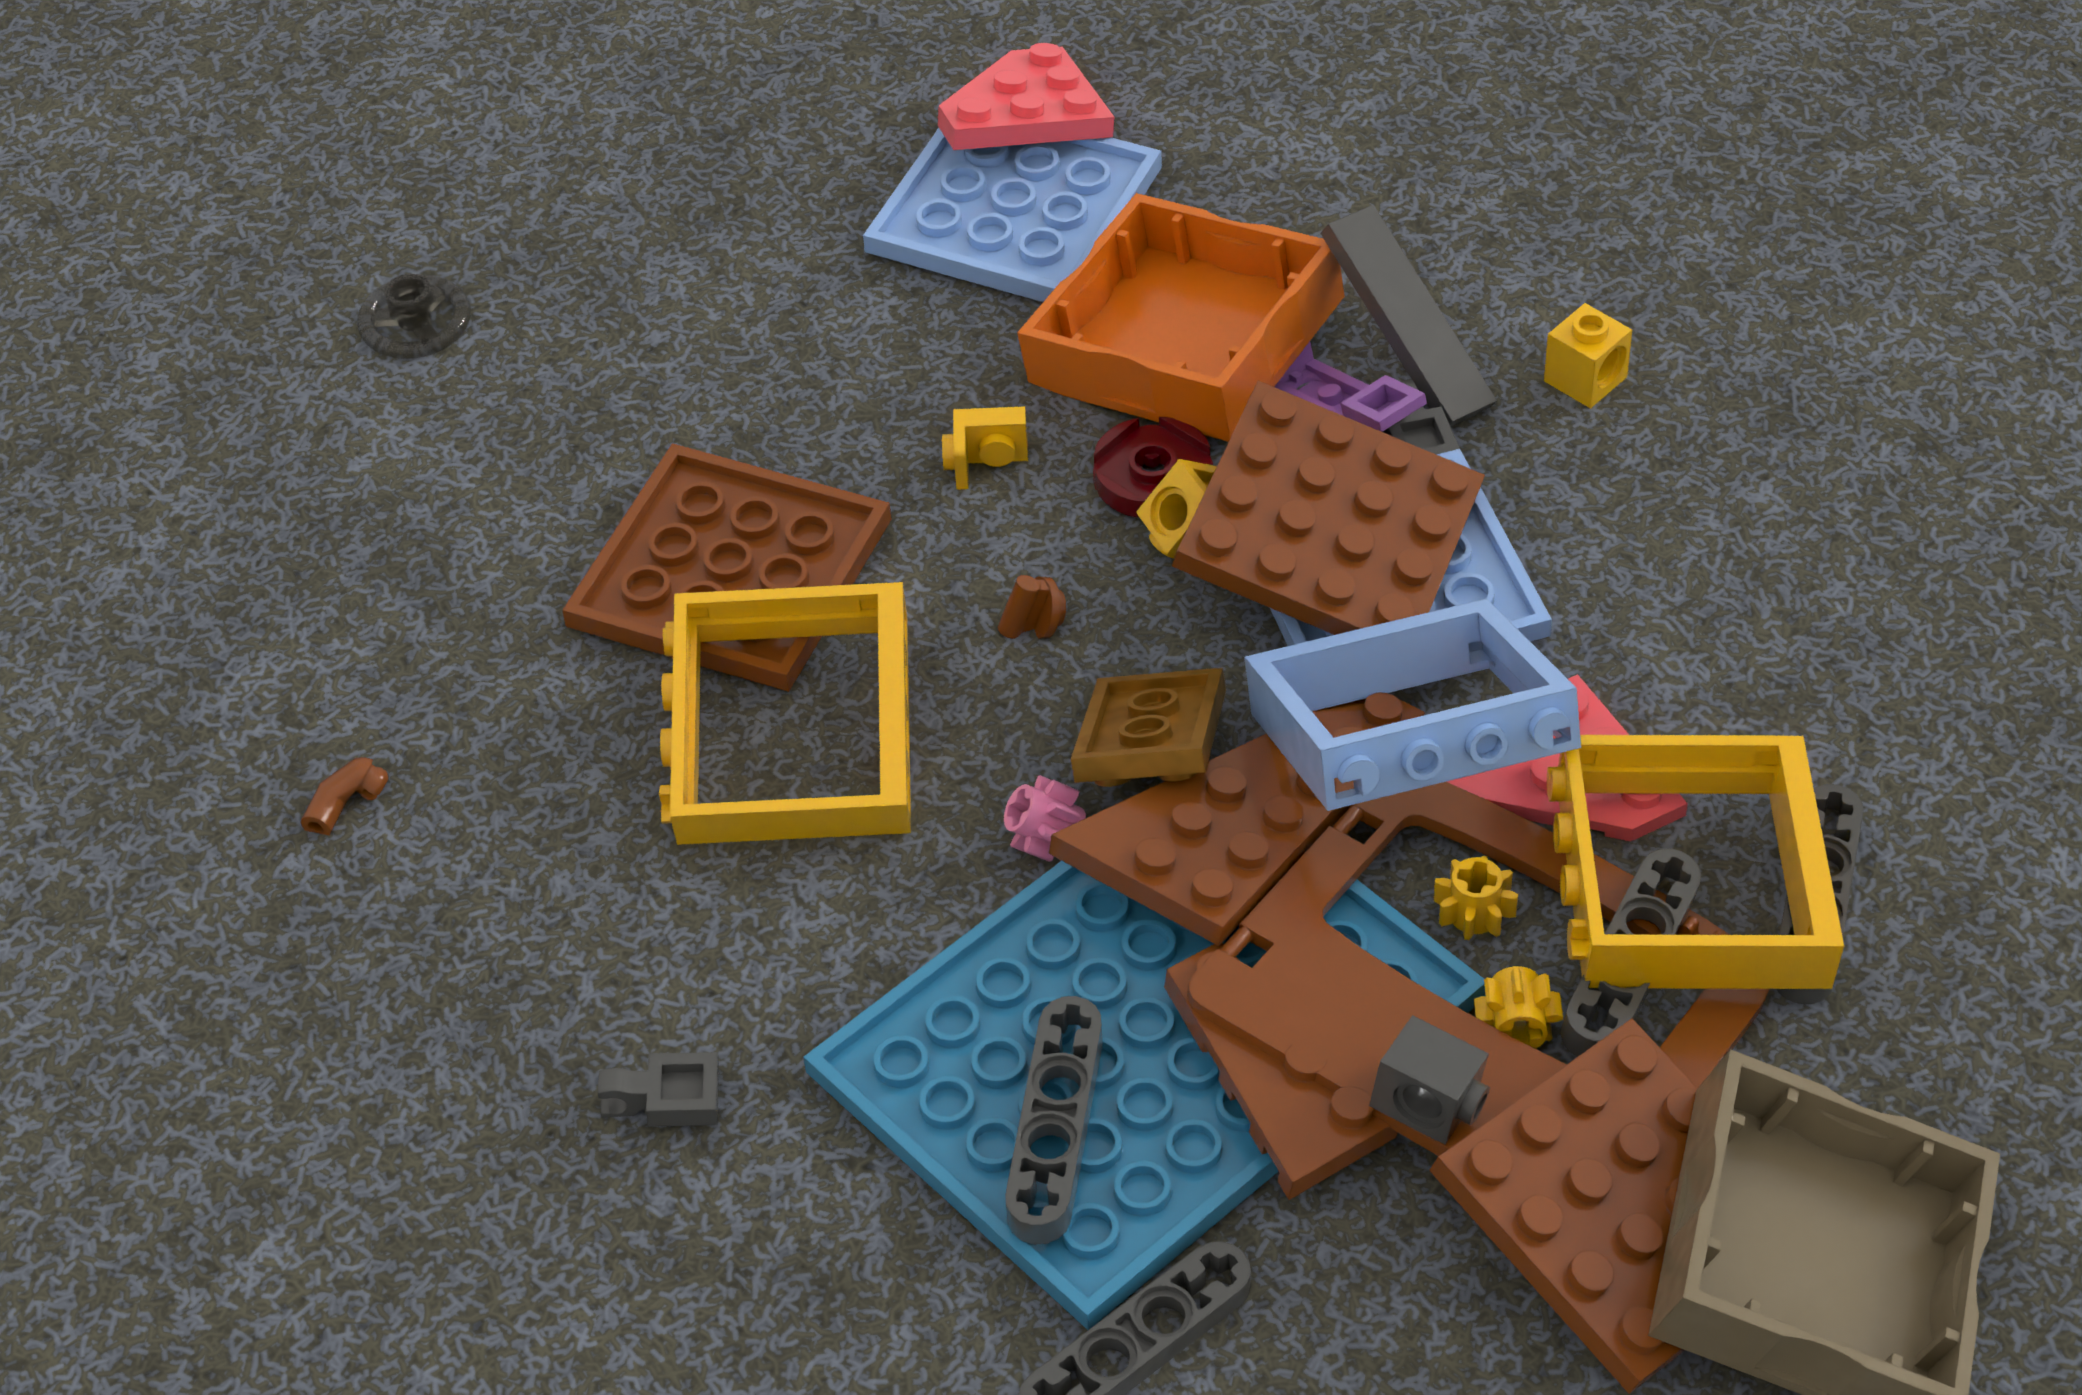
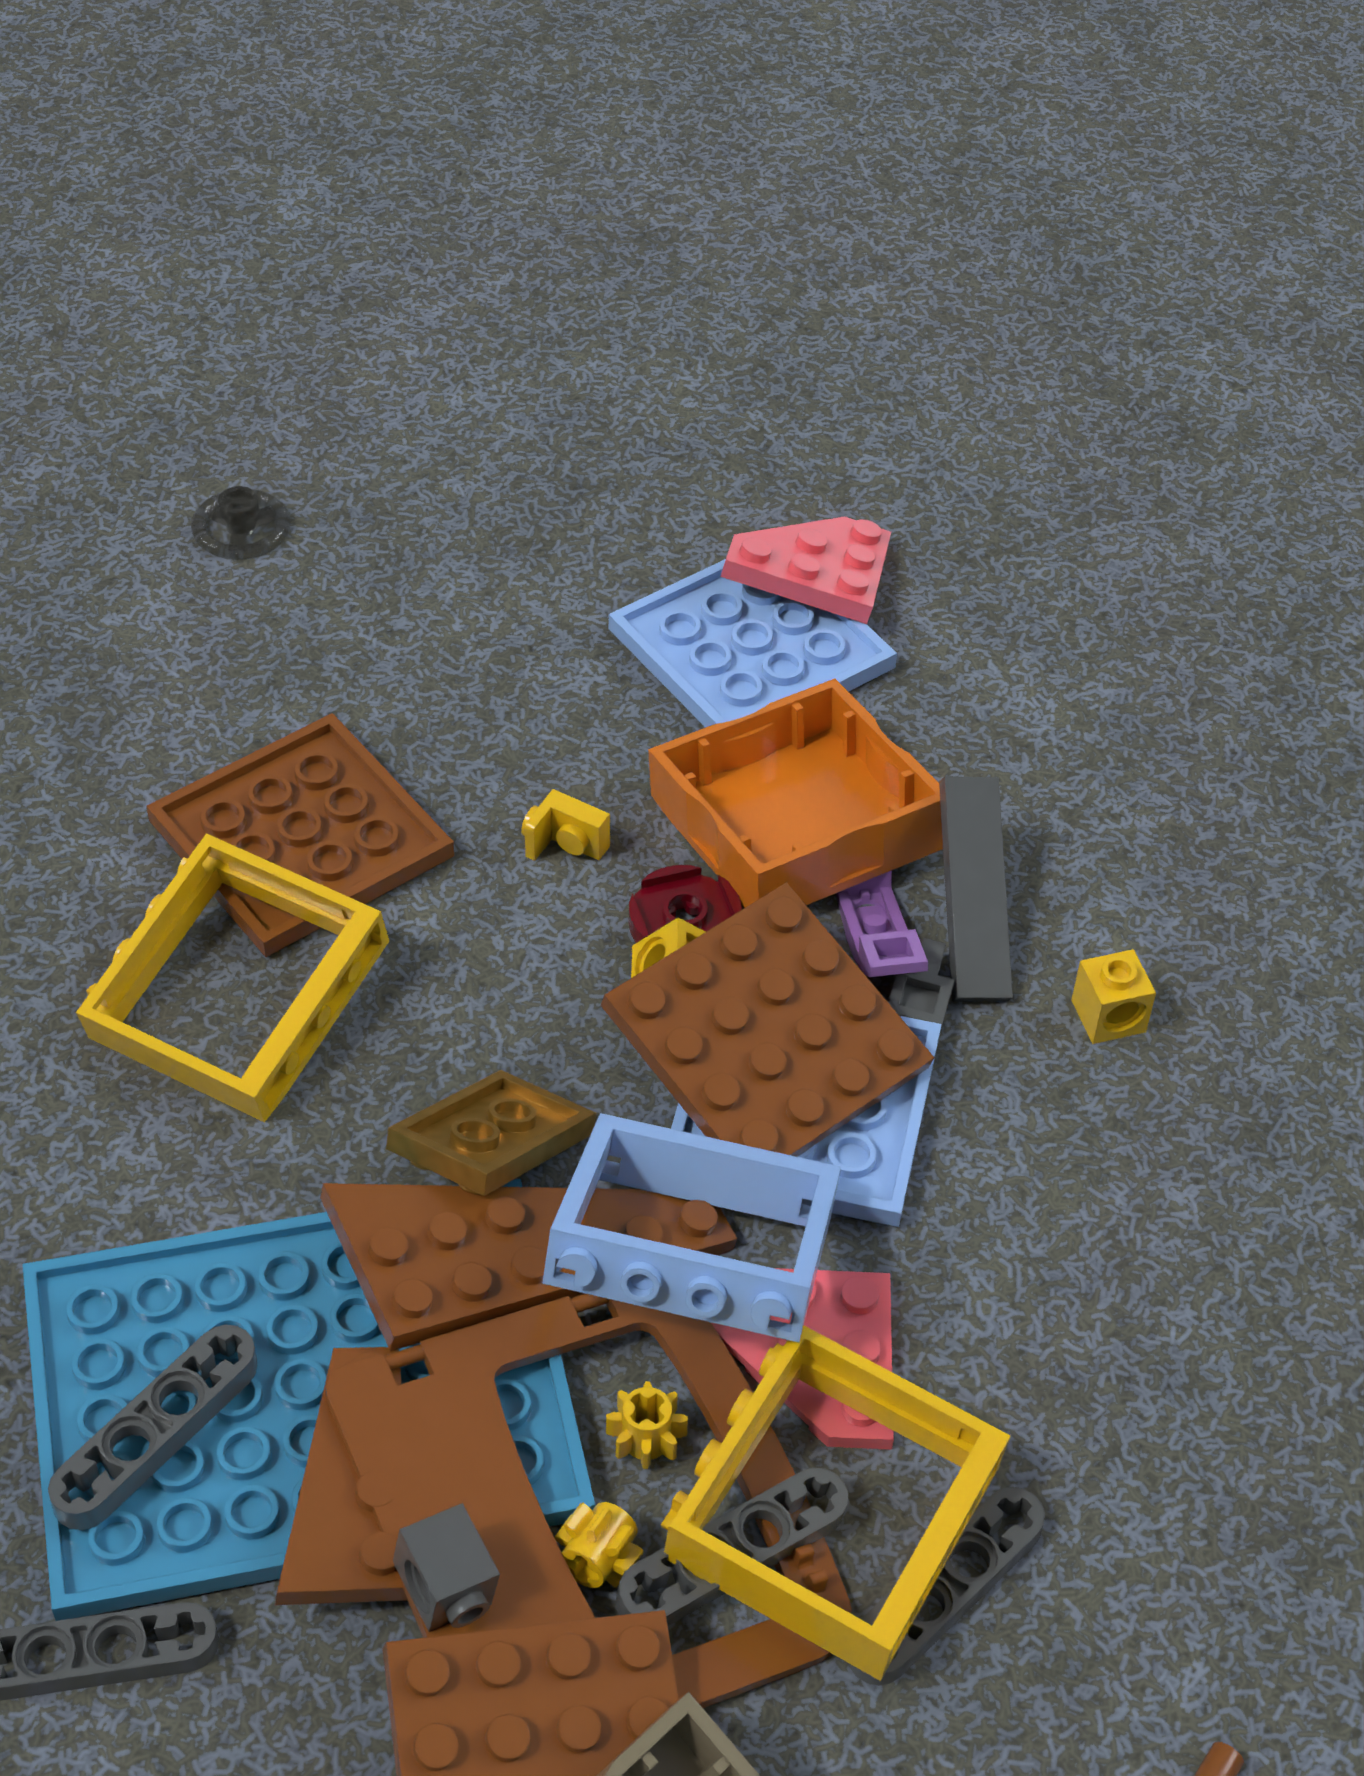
camera: 25 degrees right, 0 degrees up
(1033, 605) = (495, 983): dark orange plate -> none
(1038, 813) = (359, 1159): bright pink gear -> none

